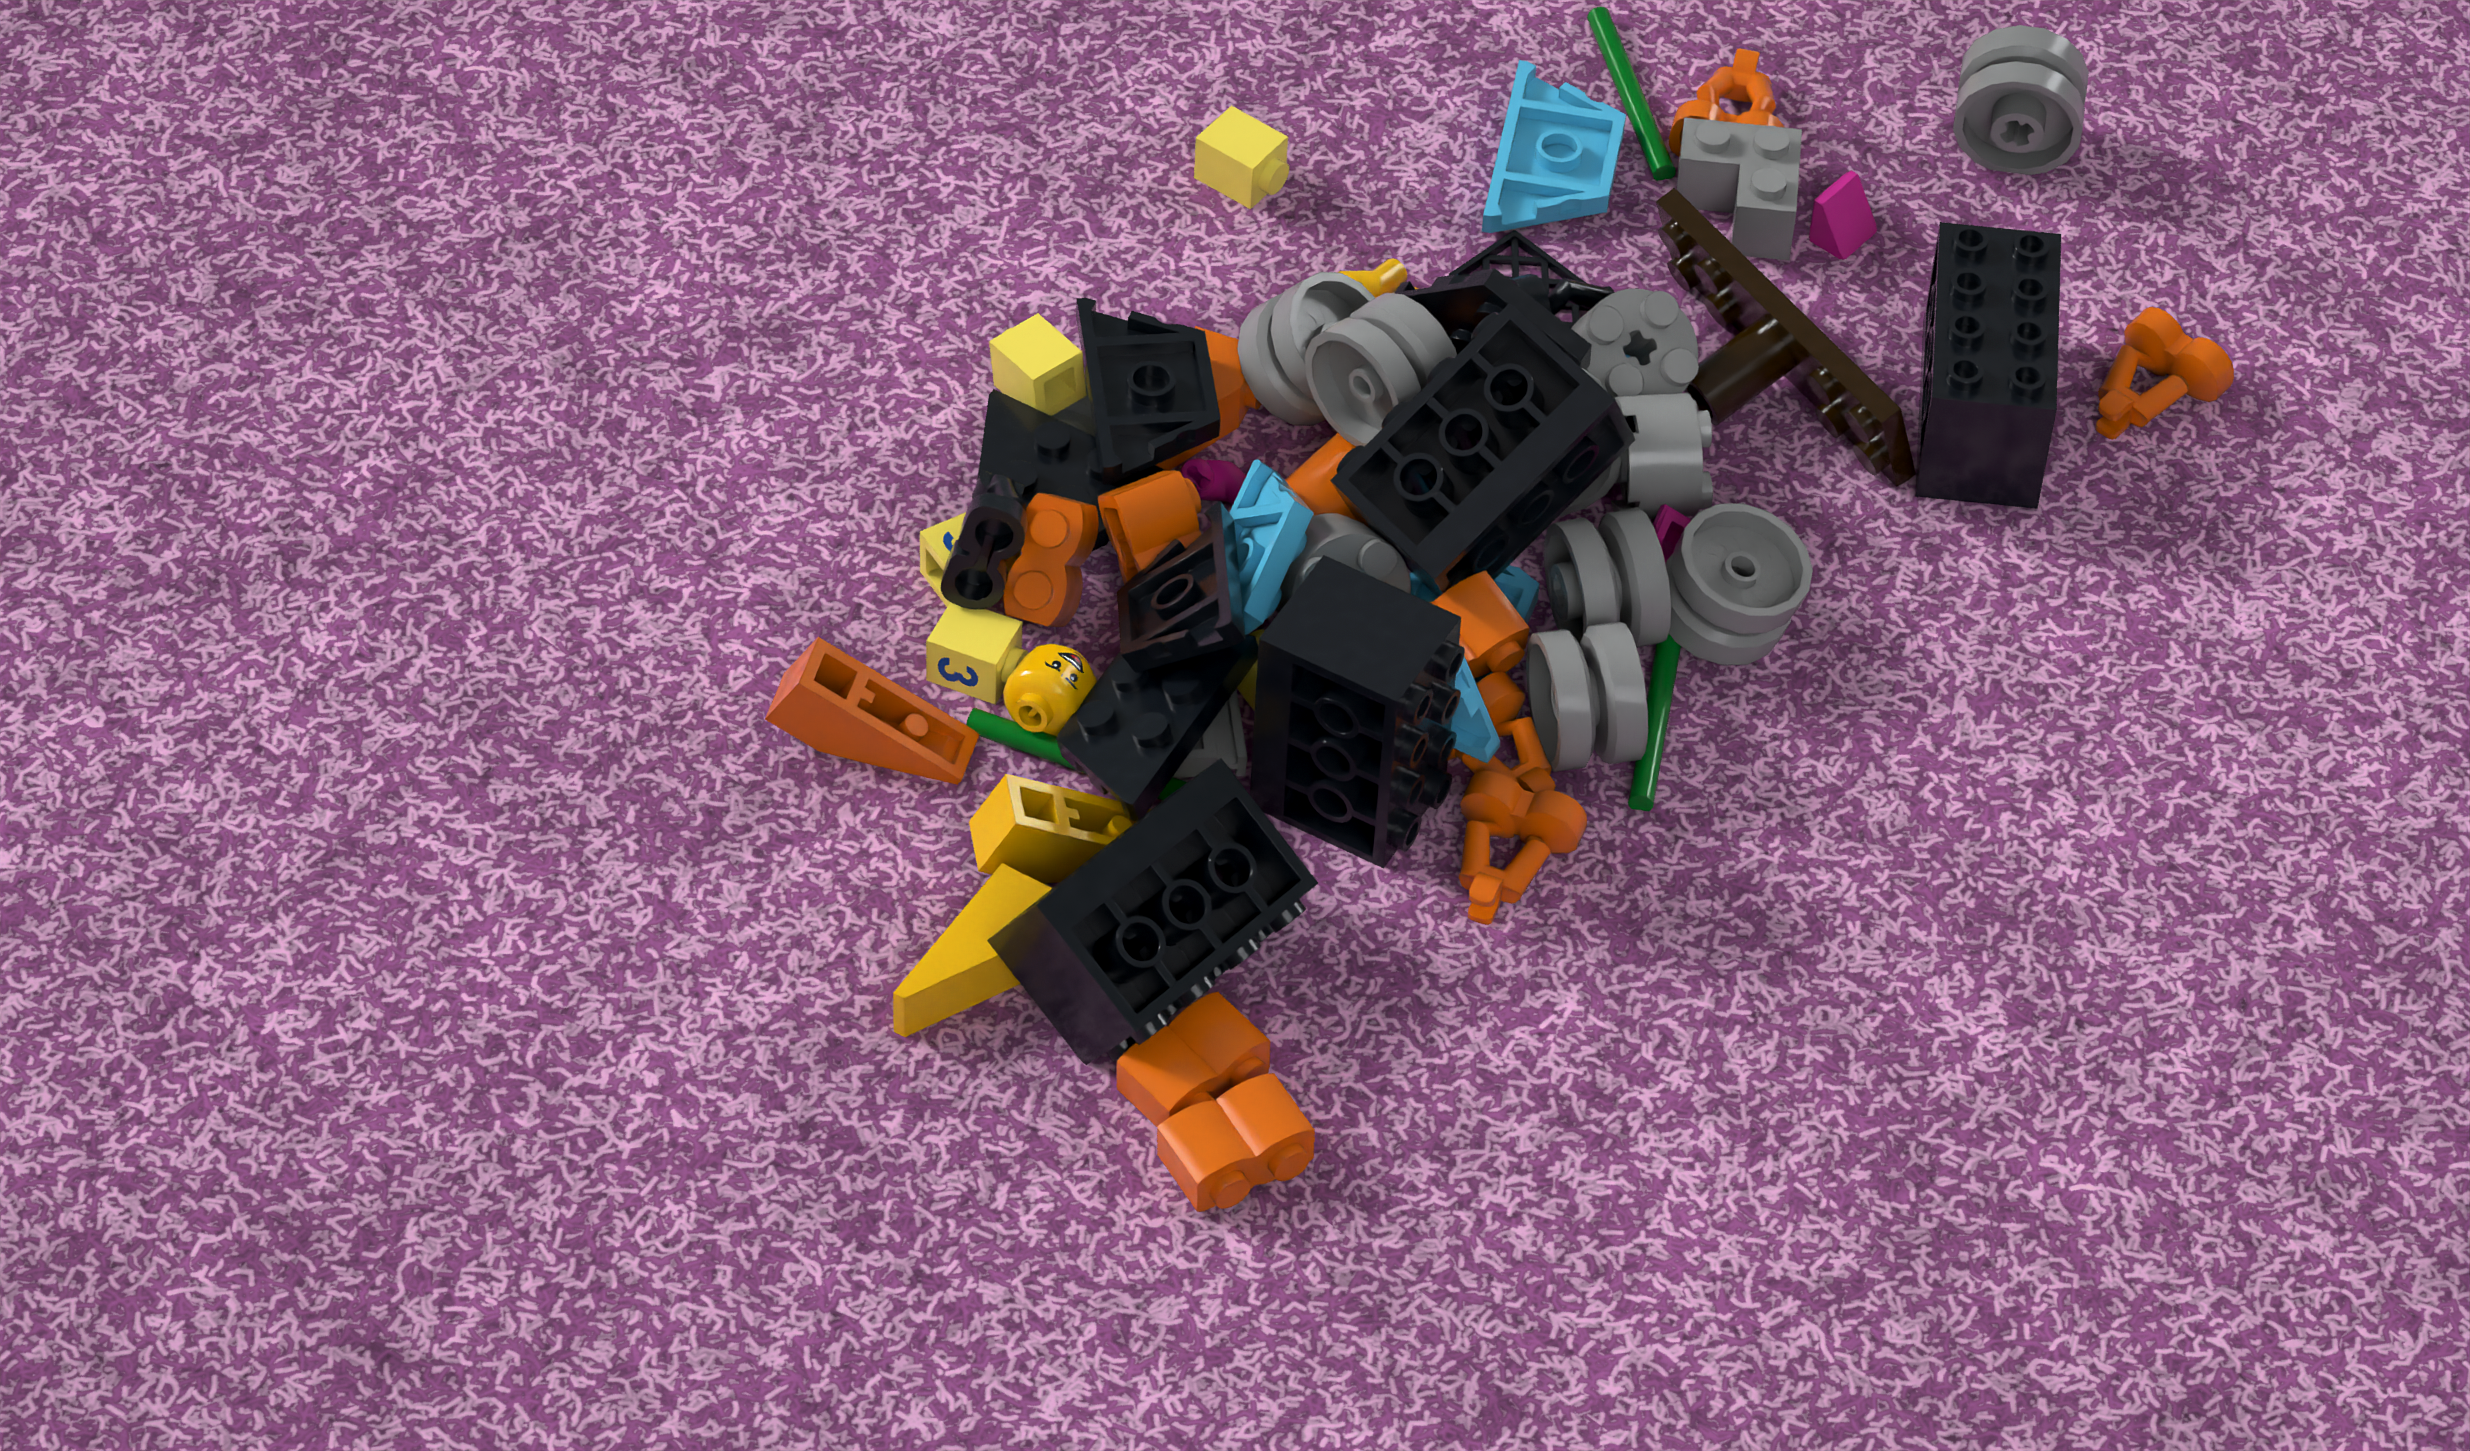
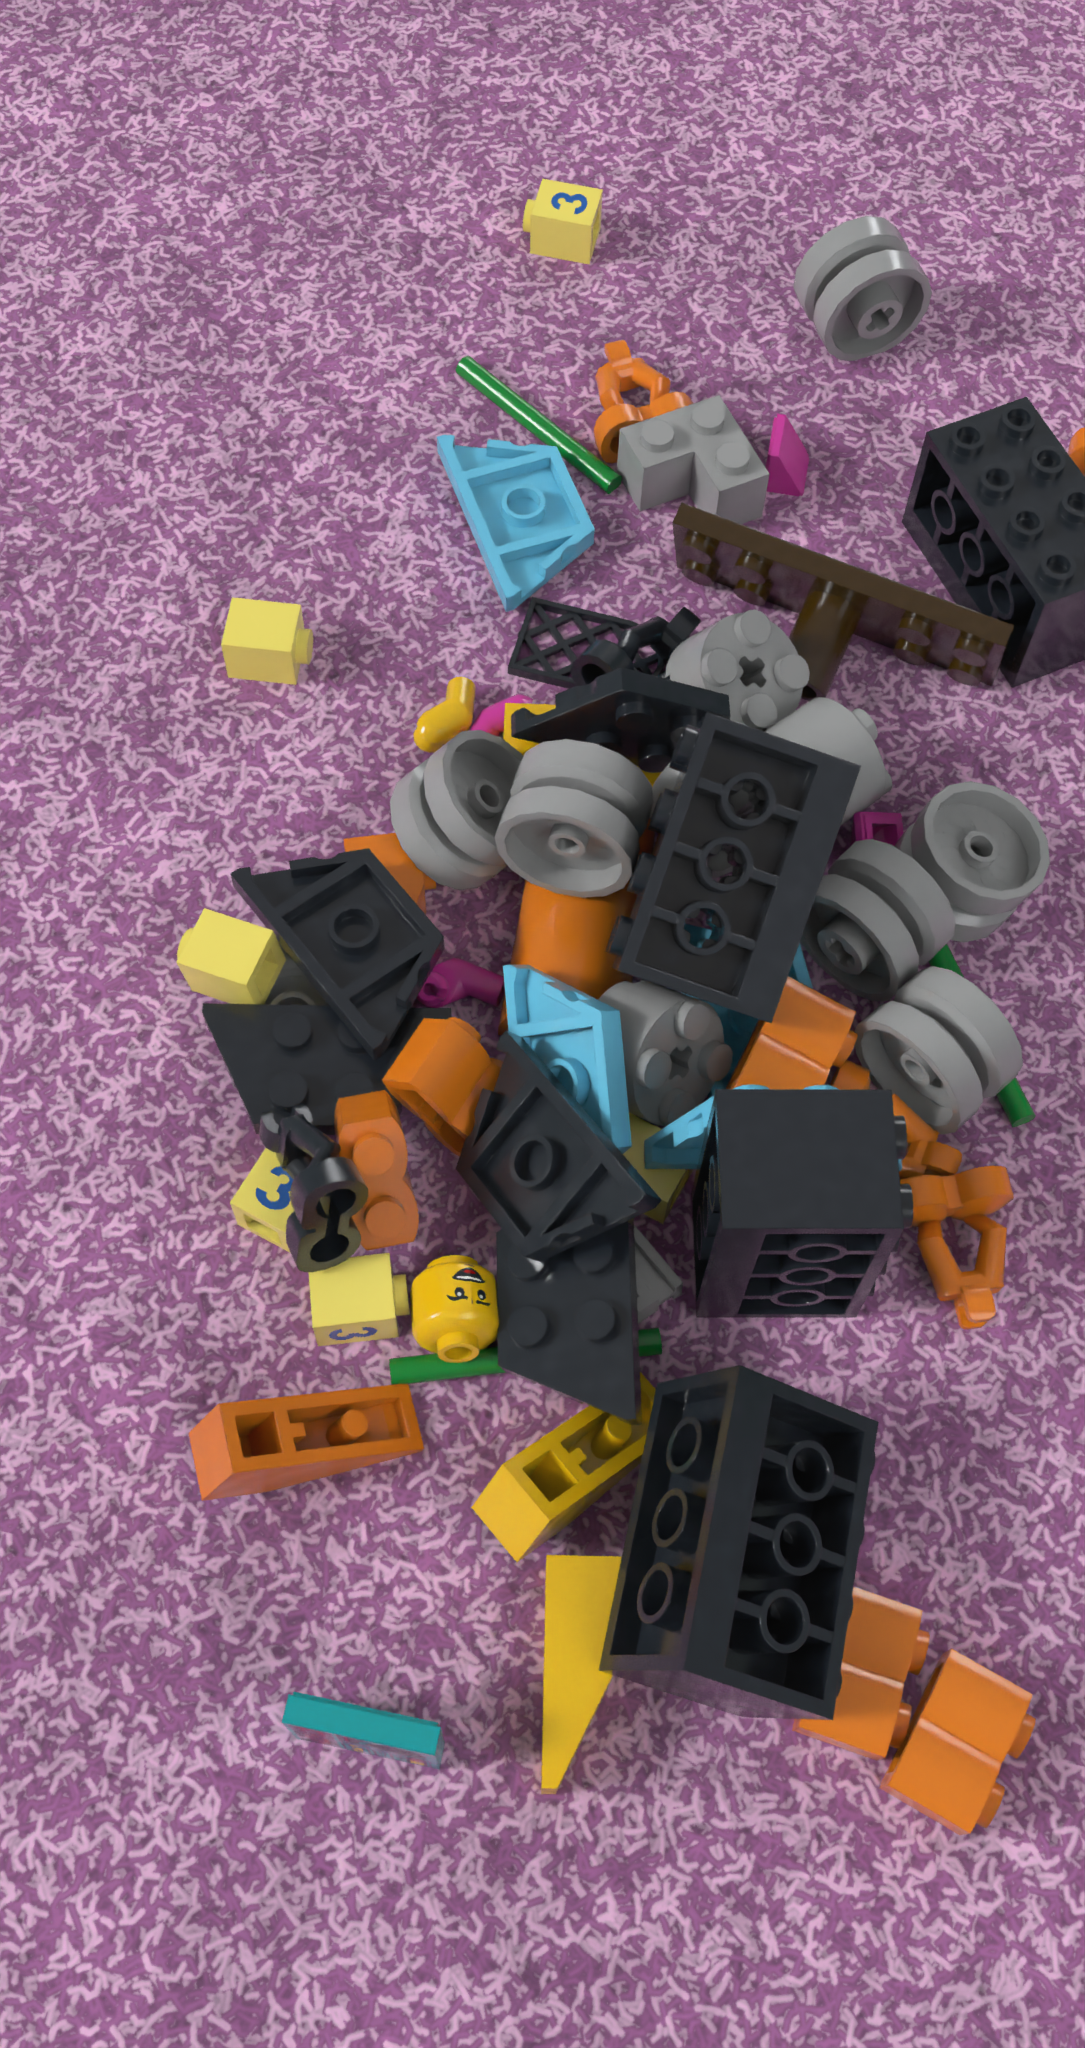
camera: 30 degrees left, 15 degrees up
(787, 897) = (364, 1730): none -> teal tile

